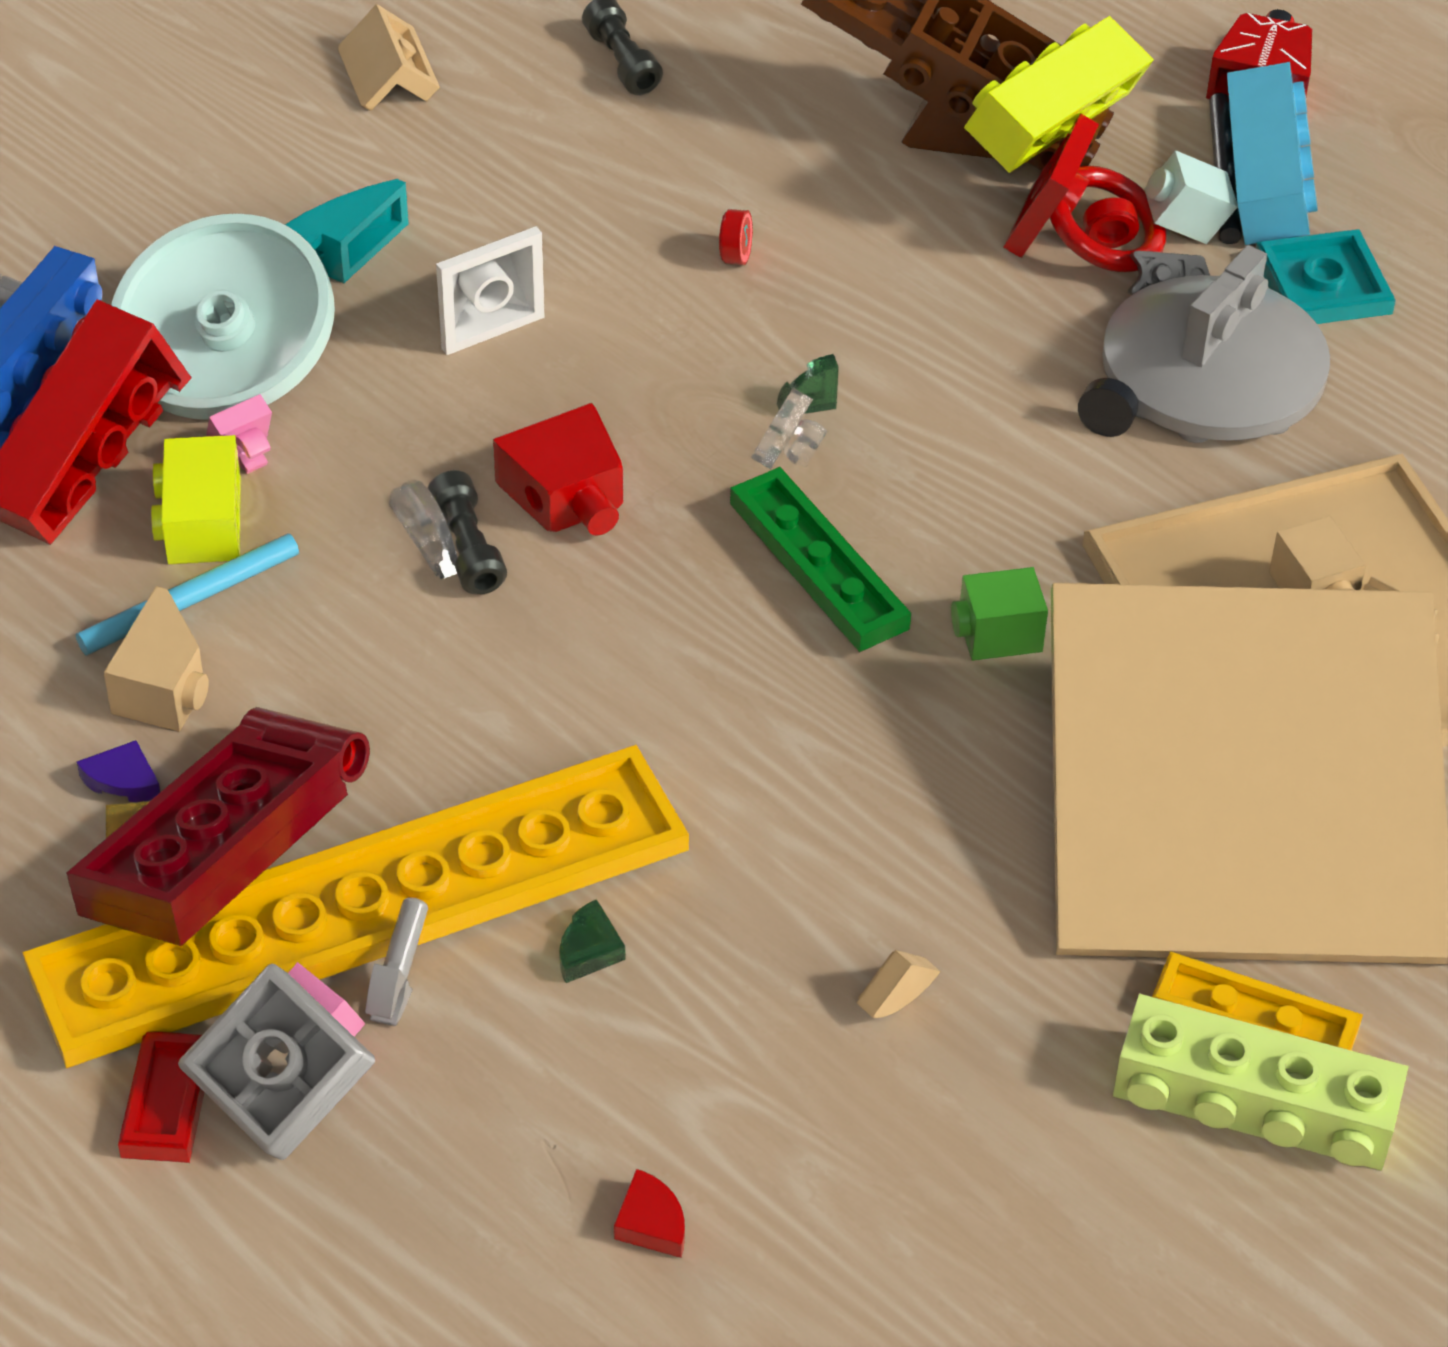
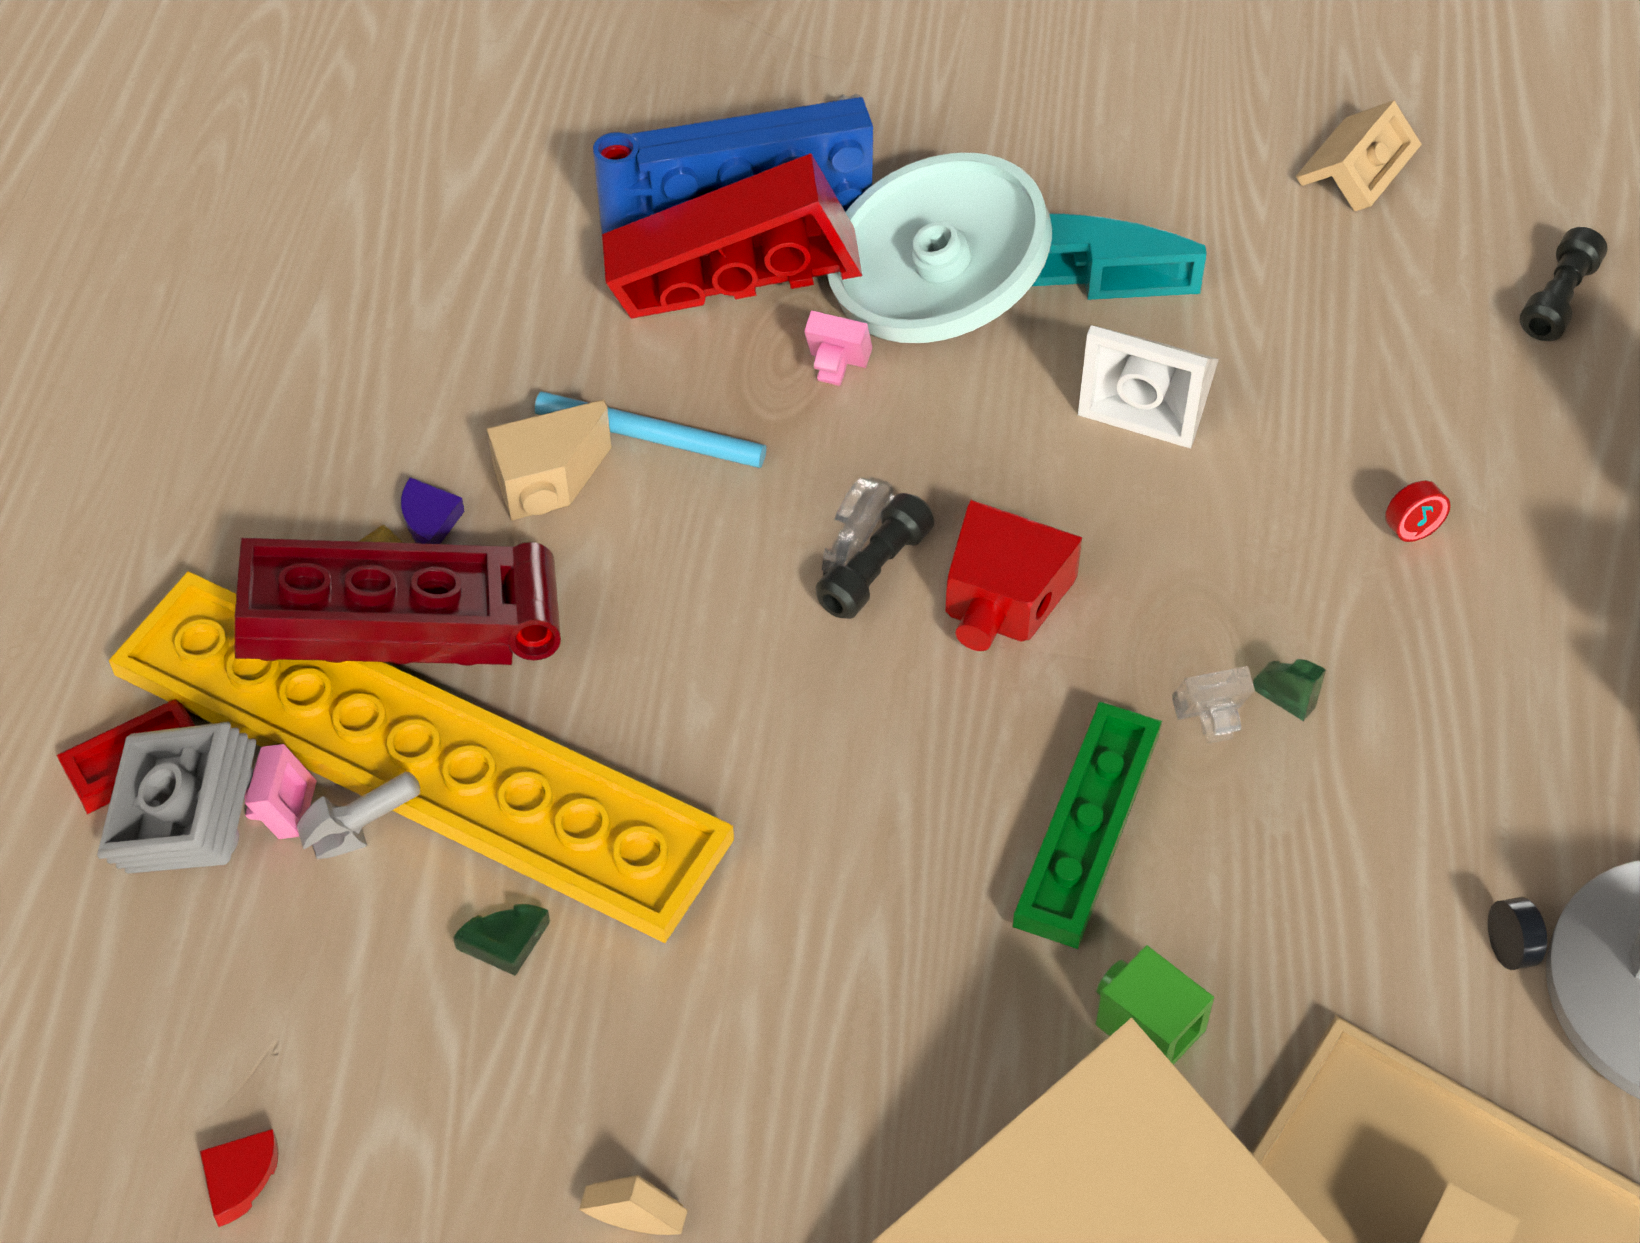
camera: 55 degrees right, 5 degrees up
(199, 499) = (742, 368): neon yellow brick -> none

